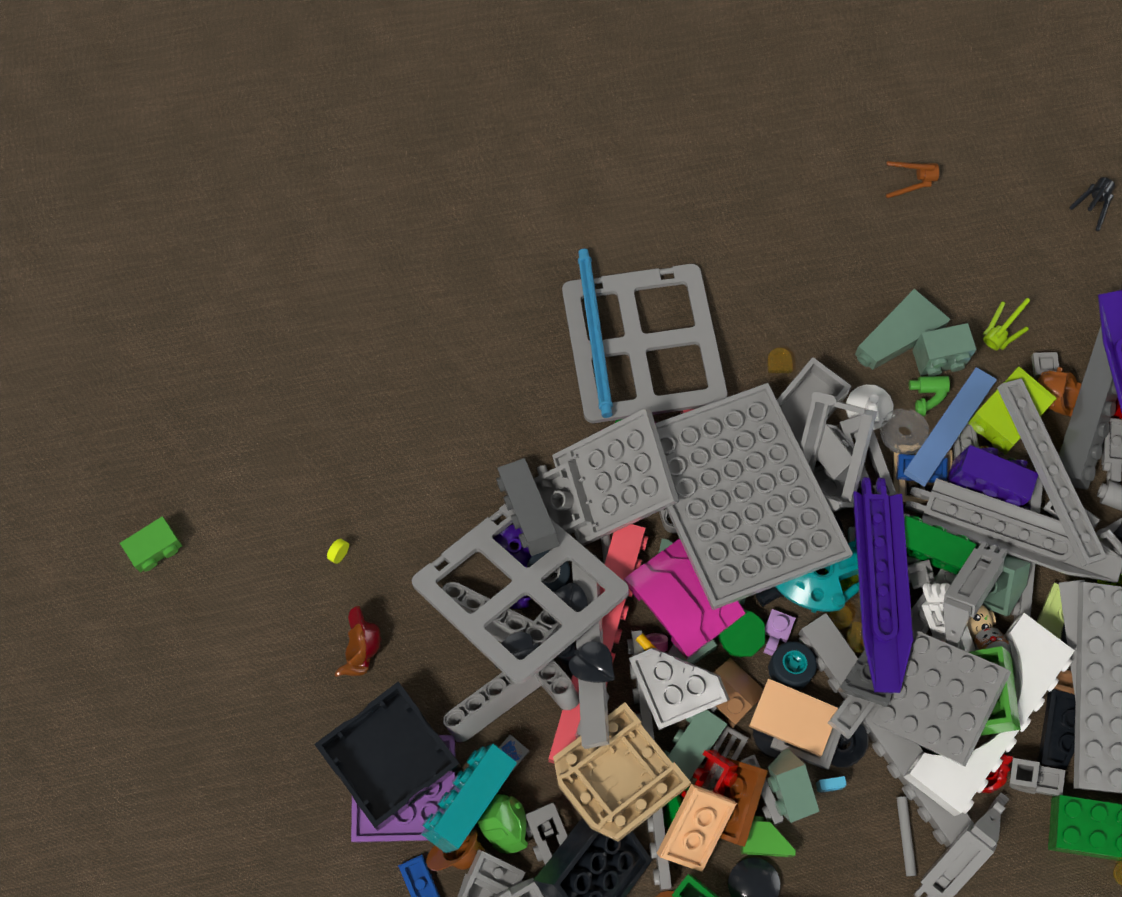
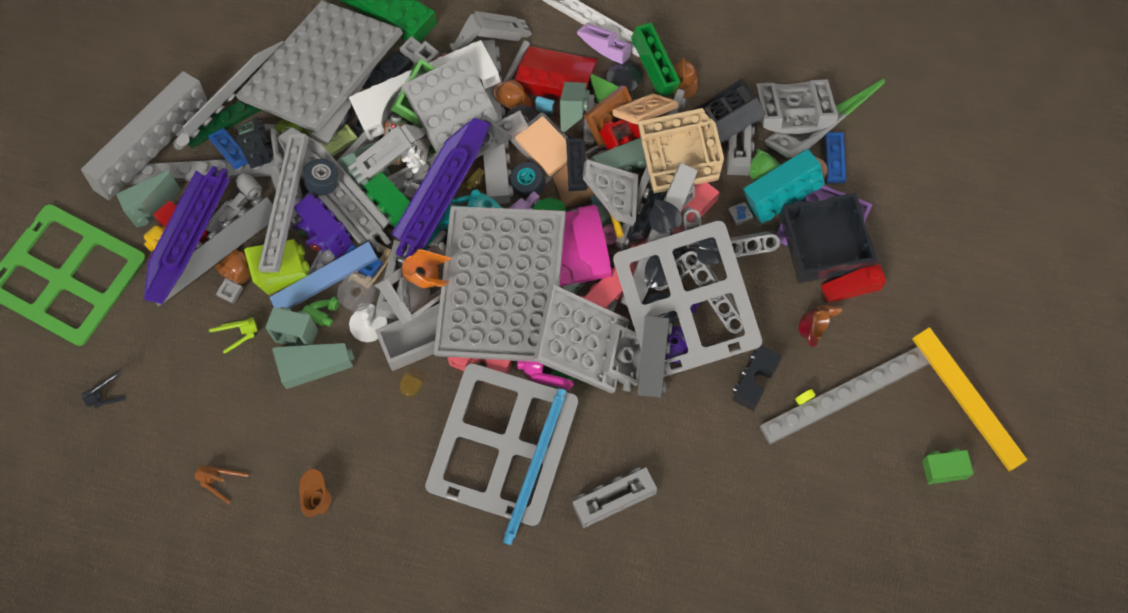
camera: 150 degrees left, 5 degrees down
(152, 636) = (969, 399): none -> yellow tile
(286, 588) = (843, 395): none -> light grey plate
(332, 716) = (854, 284): none -> red slope
(401, 568) = (763, 363): none -> black arch
(472, 366) = (602, 492): none -> light grey brick
(620, 689) = (642, 225): none -> black plate
(742, 702) = (575, 164): none -> black tile
(803, 201) = (313, 494): none -> dark orange piece
(824, 455) = (429, 263): none -> orange piece
(846, 844) = (546, 71): none -> red slope
(878, 773) = (511, 94): none -> dark orange piece
(1024, 526) = (321, 176): none -> black wheel

